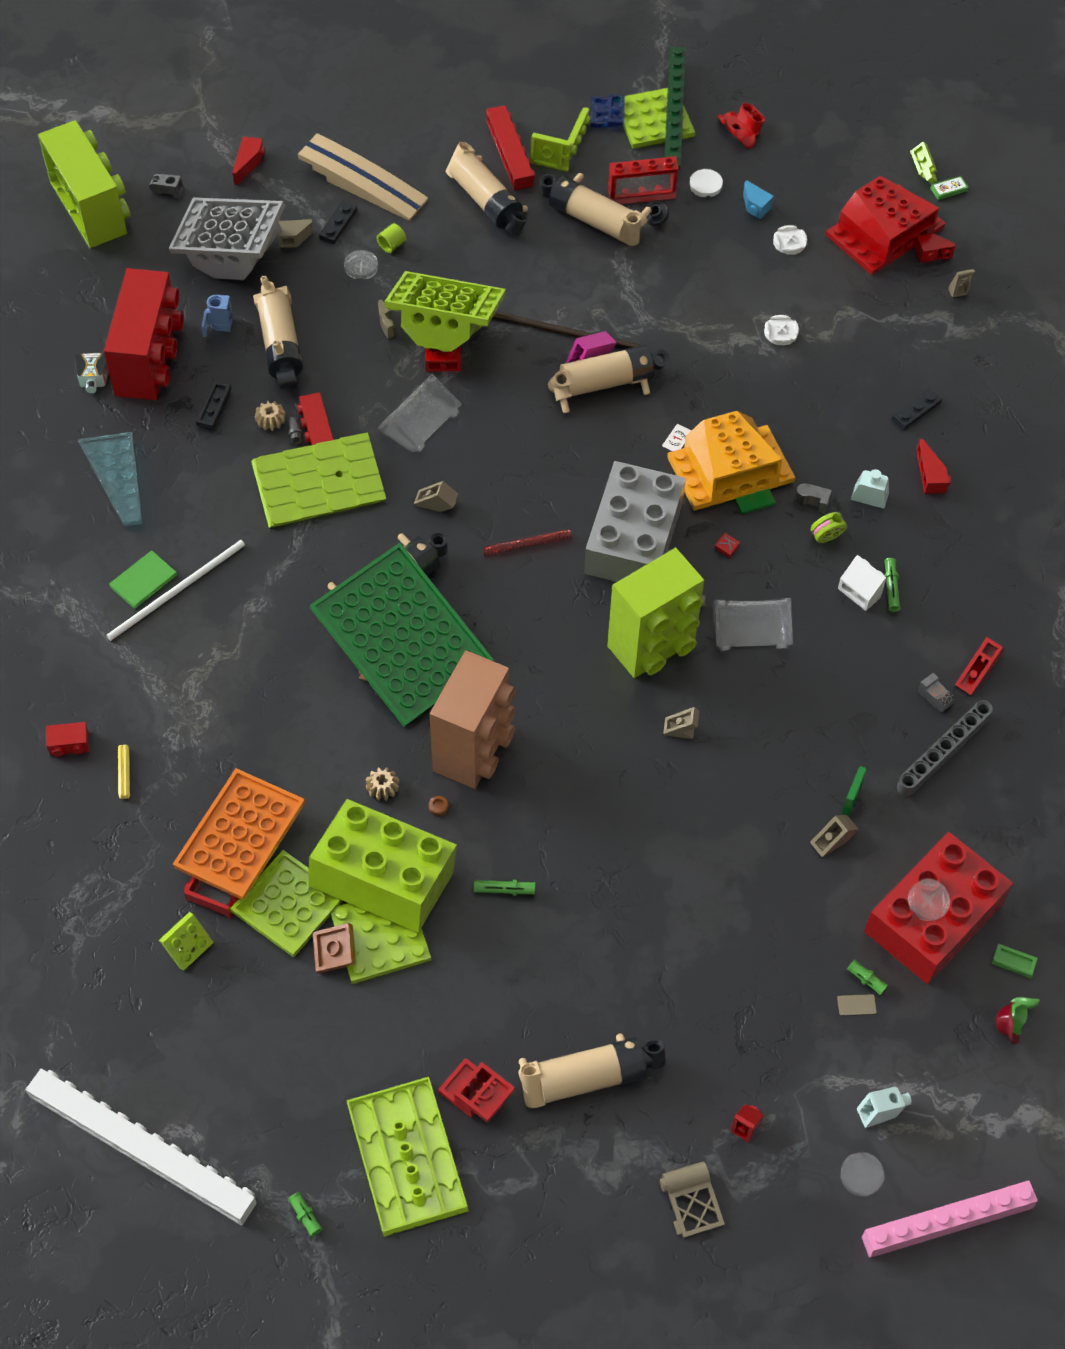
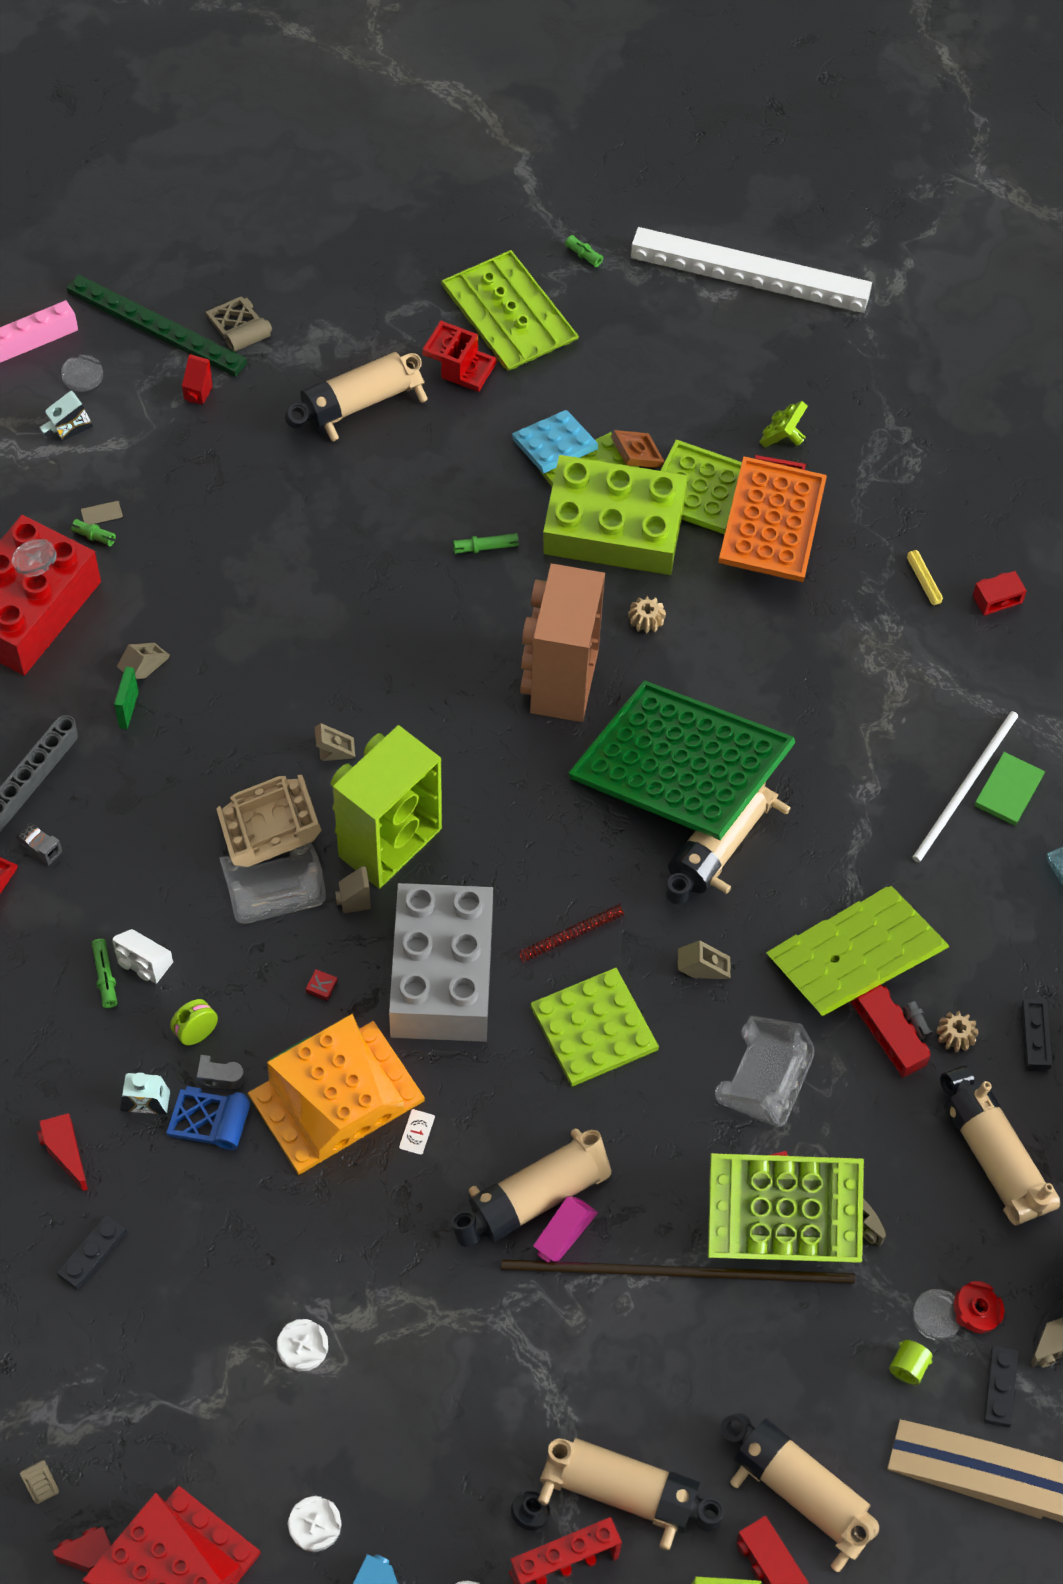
camera: 165 degrees right, 0 degrees up
(334, 257) = (969, 1316): none -> red plate
(409, 978) = (554, 437): none -> medium azure plate
(531, 477) = (594, 1027): none -> lime plate
(748, 664) = (268, 820): none -> tan wedge
(781, 1222) = (156, 325): none -> dark green plate
(810, 467) = (228, 1118): none -> blue piece

